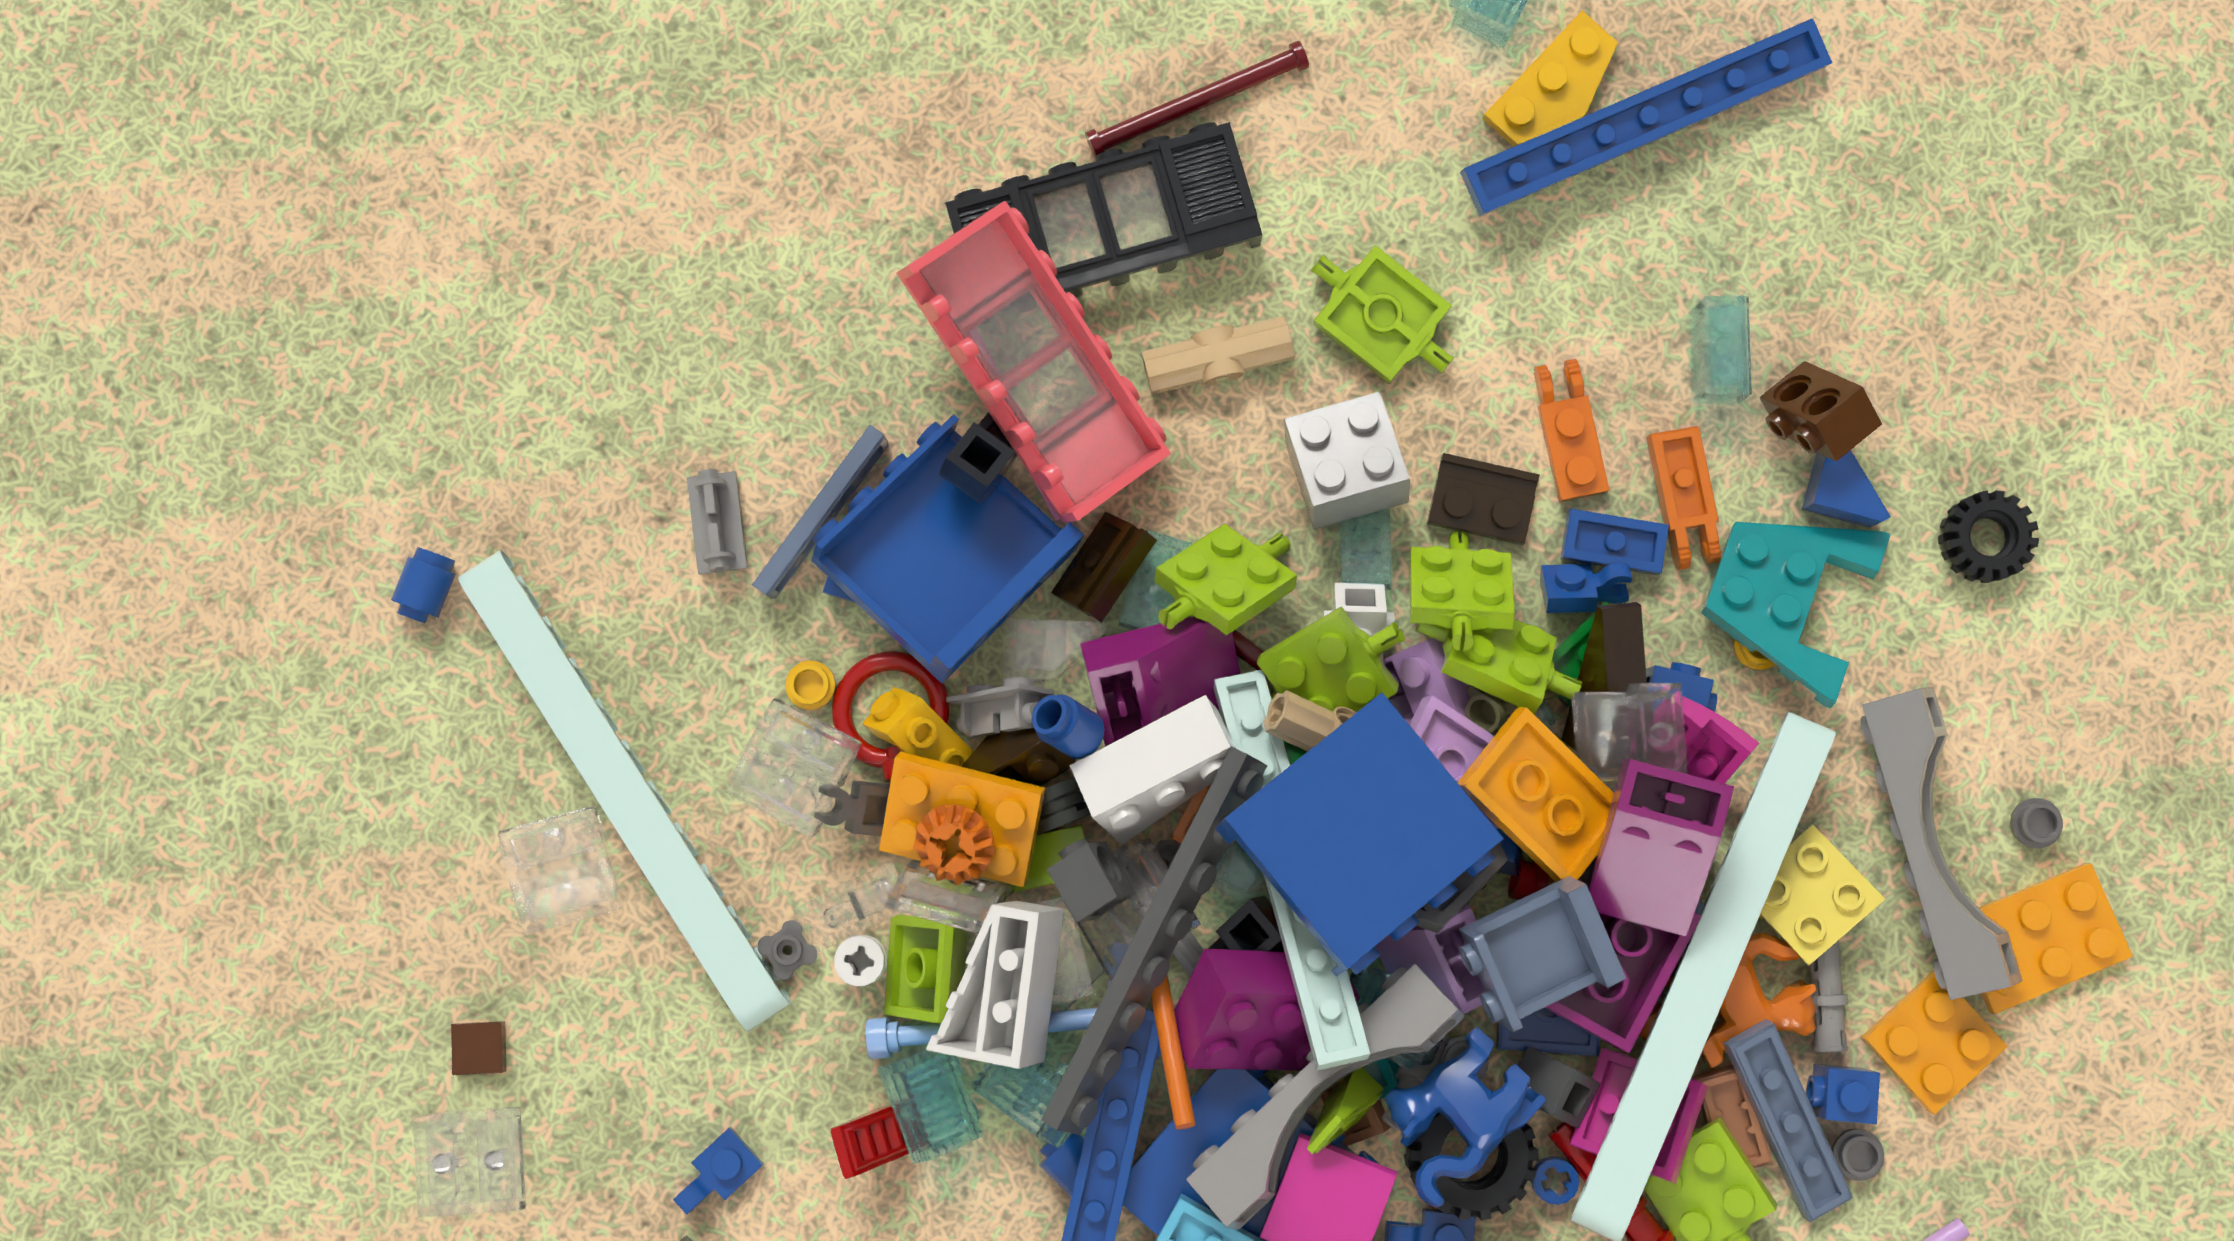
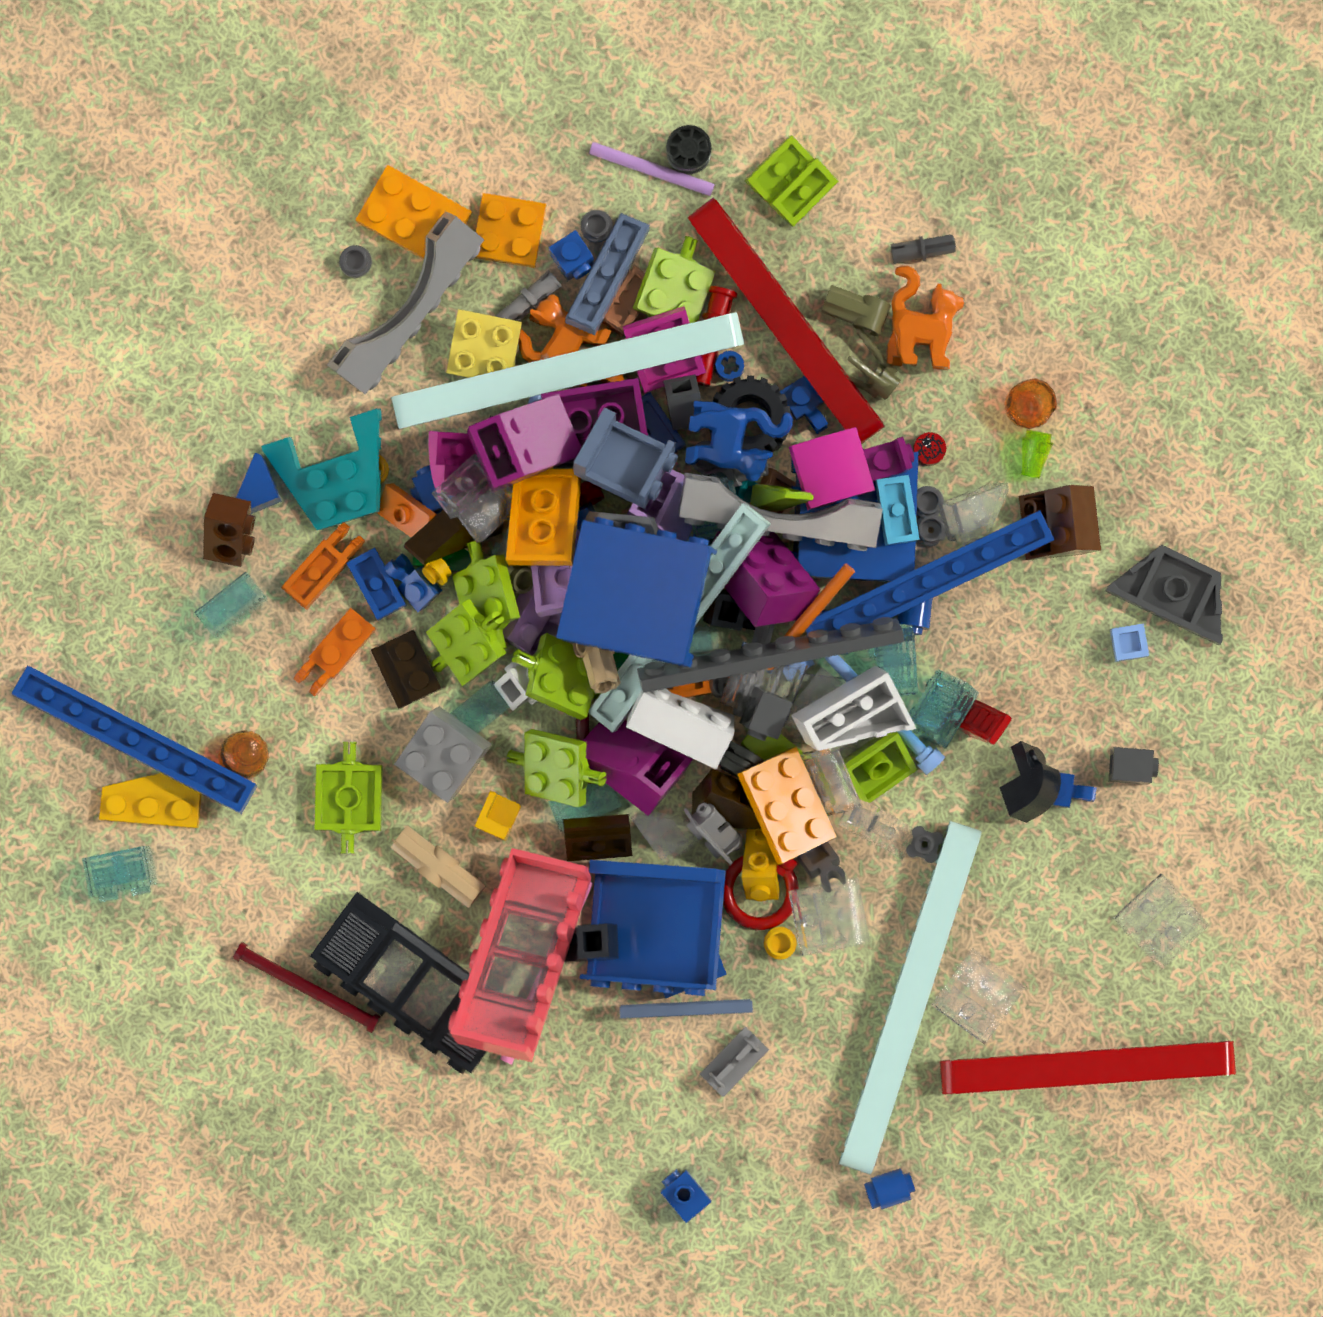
camera: 130 degrees left, 0 degrees up
(368, 932) = (1087, 1067): none -> red beam
(478, 1047) = (1101, 964): reddish brown tile -> none
(610, 344) = (684, 1194): none -> blue brick
(744, 1141) = (1035, 787): none -> black brick
(871, 953) = (895, 804): white wheel -> none
(975, 840) = (796, 810): orange gear -> none
(1068, 726) = (696, 785): blue brick -> none
(1222, 470) = (497, 816): none -> yellow panel
(1528, 232) = (244, 754): none -> clear orange hair
(1574, 621) = (437, 572): none -> yellow plate
(1681, 641) = (404, 510): none -> orange plate
(2015, 527) = (210, 381): black tyre -> none

